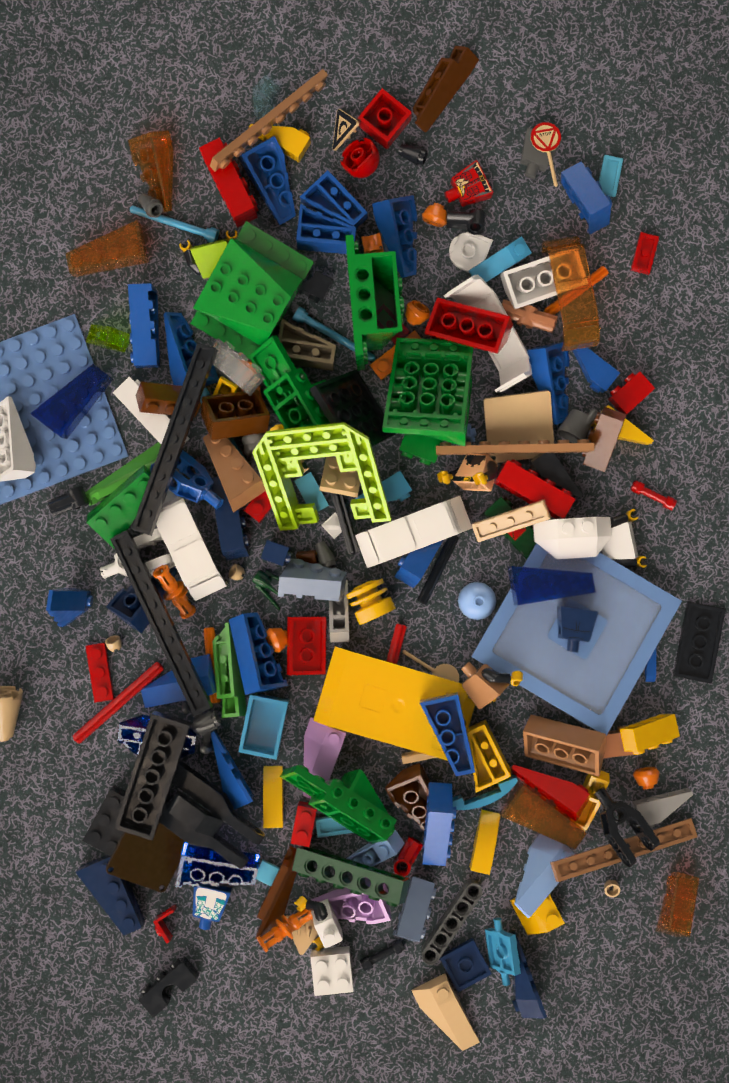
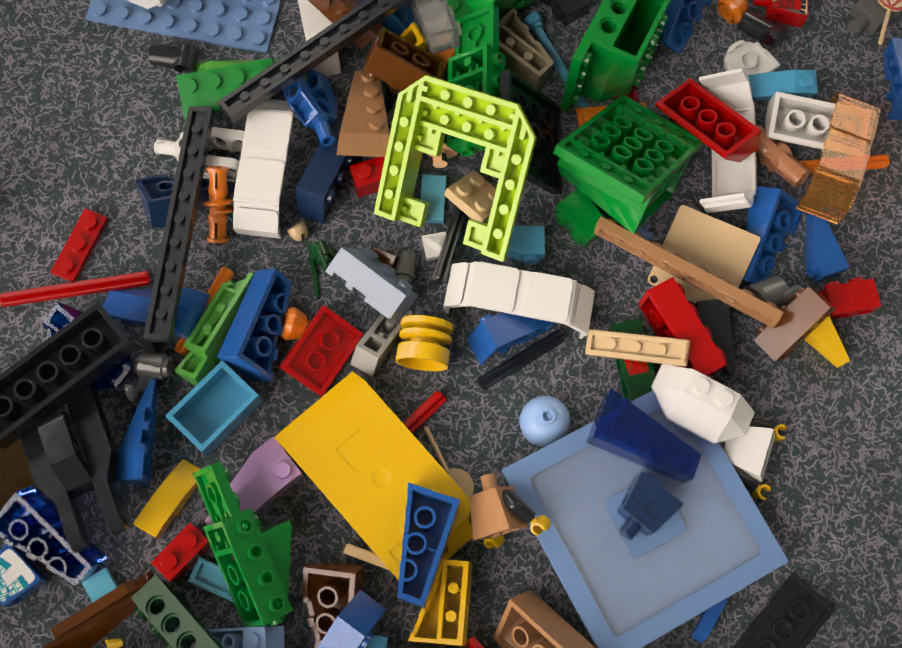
camera: 25 degrees right, 15 degrees down
(68, 604) = (94, 145): blue wedge -> none
(113, 642) = (116, 223): tan hinge -> none
(277, 553) = (354, 229): dark blue brick -> none
(416, 312) = (656, 85): orange cone -> none
(474, 473) = (623, 278): torso -> none
(668, 502) = (828, 444): red bar -> none

